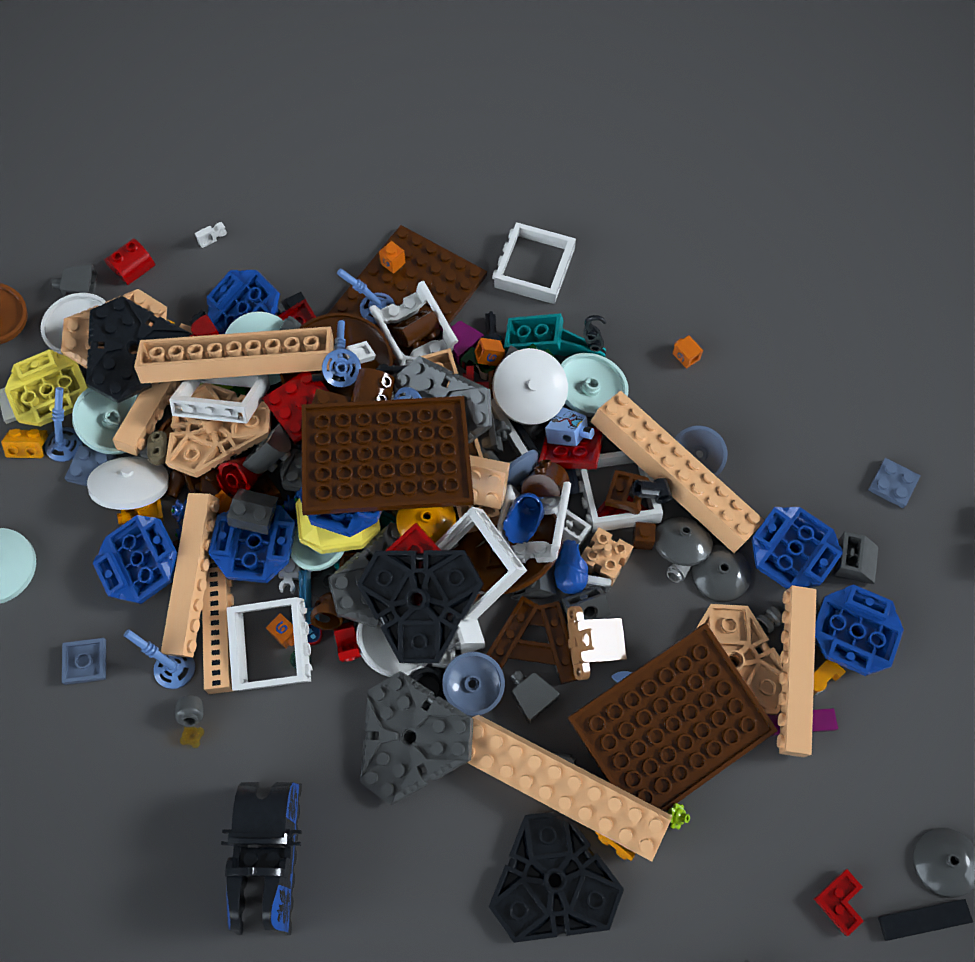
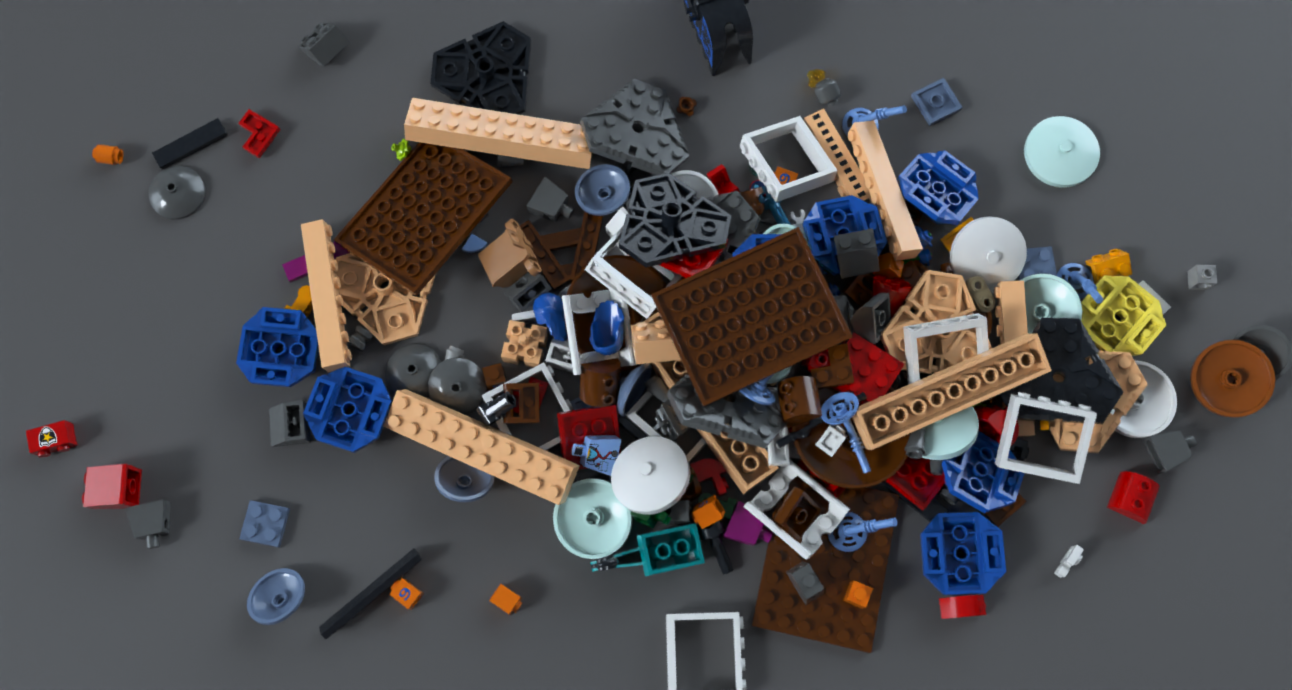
camera: 160 degrees right, 10 degrees up
(217, 299) = (1073, 476): none -> white window
(292, 259) = (982, 550): none -> blue piece
(314, 227) = (962, 606): none -> red brick
(339, 755) = (686, 101): none -> reddish brown plate
(430, 272) = (805, 582): none -> dark grey torso
(774, 382) = (406, 593): none -> orange brick
(806, 393) = (370, 593): none -> black tile
(903, 412) = (275, 596): none -> sand blue dish

